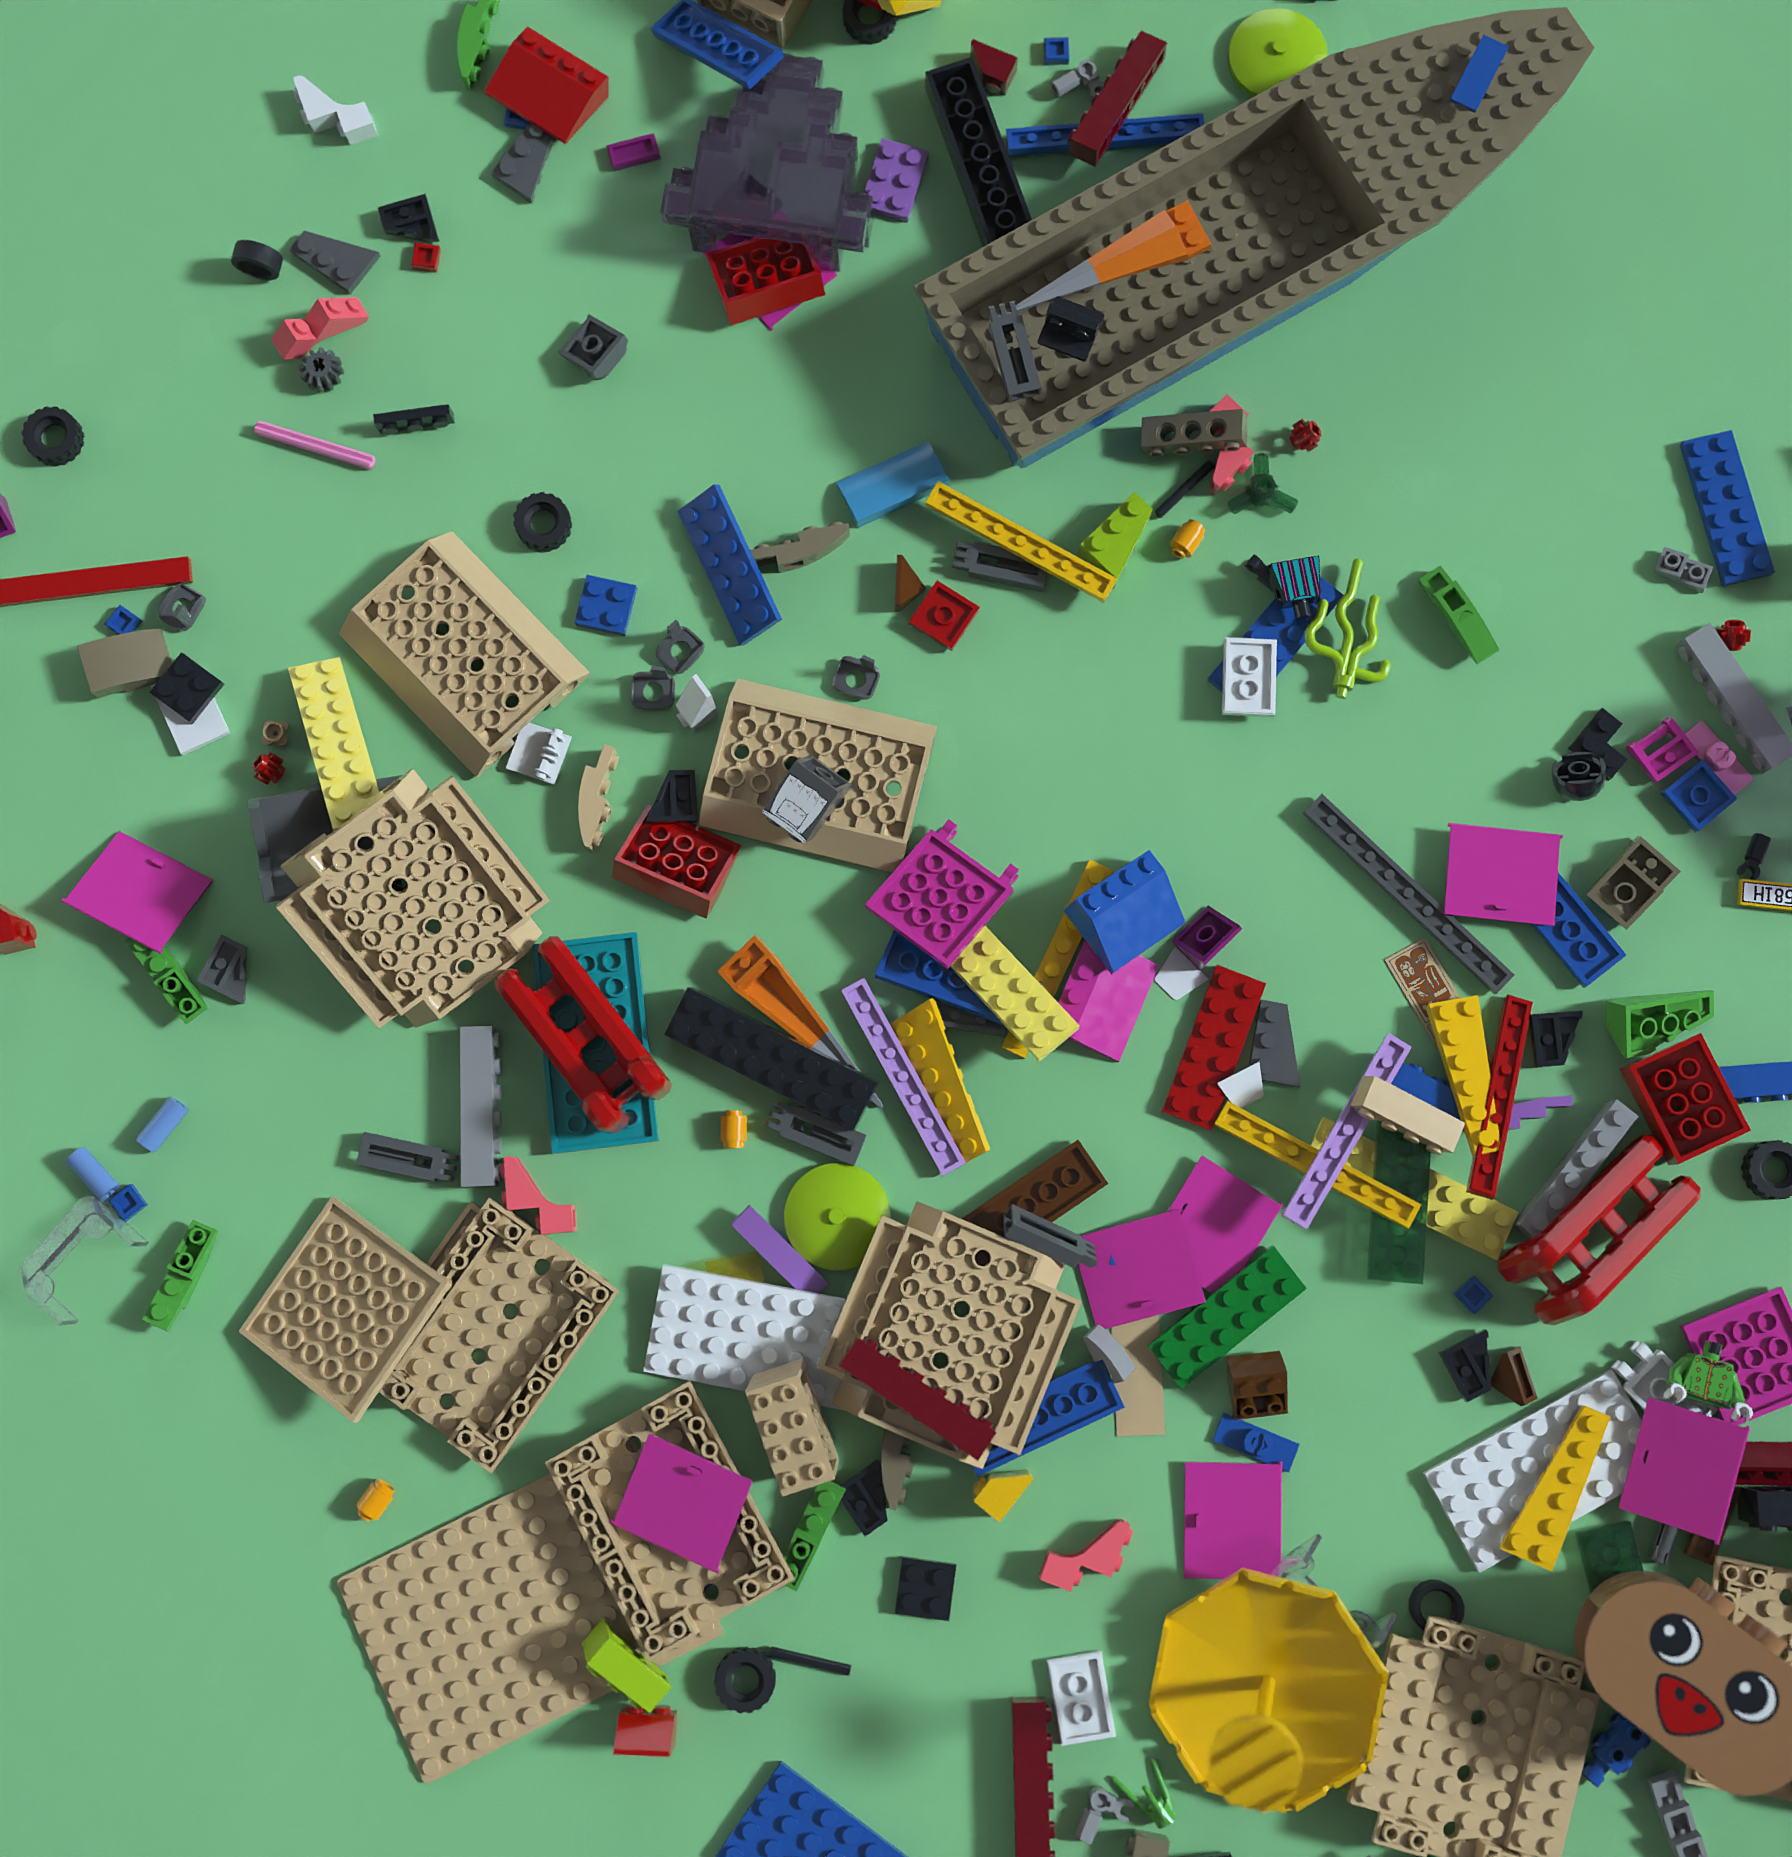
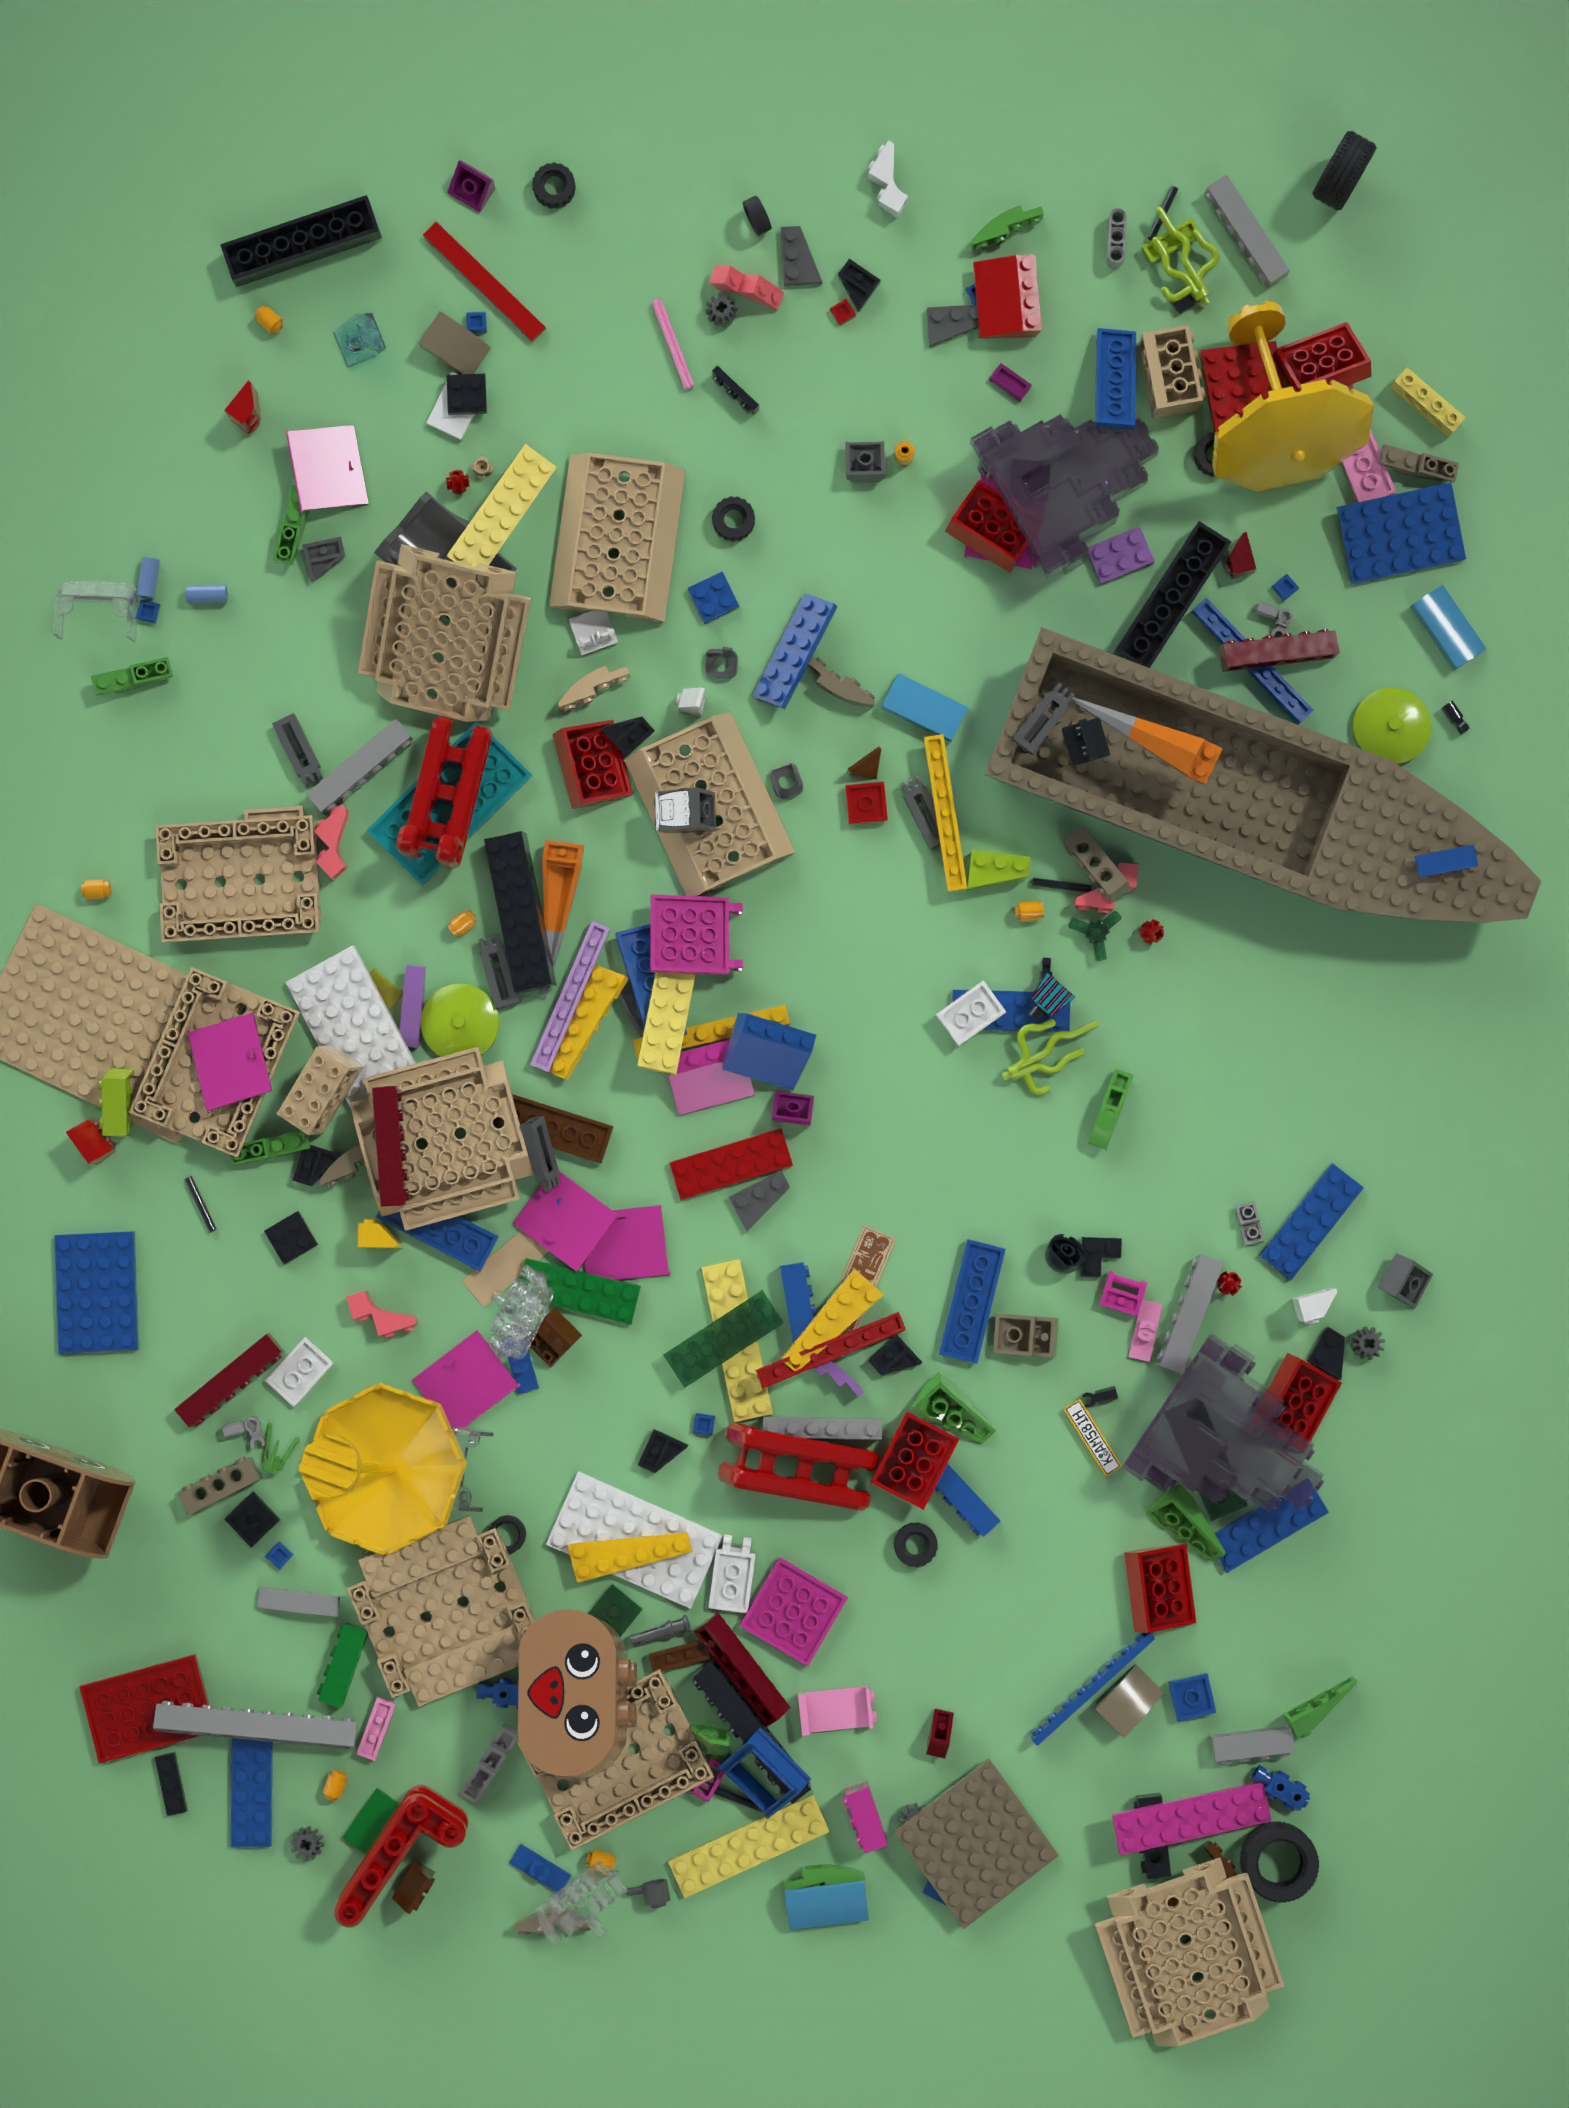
camera: 50 degrees right, 5 degrees up
(36, 753) = (359, 339): none -> clear light blue slope
(181, 618) = (505, 357): dark grey piece -> none
(345, 1309) = (187, 784): tan plate -> none
(618, 303) = (901, 458): none -> light orange brick
(658, 675) = (683, 655): dark grey piece -> none
(723, 1680) = (147, 1171): black tyre -> none
(1105, 1347) = (505, 1233): light grey slope -> none
(1179, 975) = (758, 1111): white sticker -> none
(1221, 1408) = (520, 1313): none -> clear piece
(1243, 1086) = (720, 1198): white sticker -> none
(1300, 1155) = (705, 1274): yellow plate -> none
(1341, 1139) = (737, 1275): lavender plate -> none
(1407, 1114) = (773, 1302): tan brick -> none
(1408, 894) = (913, 1207): dark grey plate -> none
(1504, 872) = (970, 1253): dark pink piece -> none
(1513, 1378) = (673, 1482): reddish brown slope -> none
(1686, 1469) = (694, 1615): dark pink piece -> none
(1699, 796) = (1111, 1336): blue plate -> none
(1707, 1381) = (755, 1590): bright green torso -> none

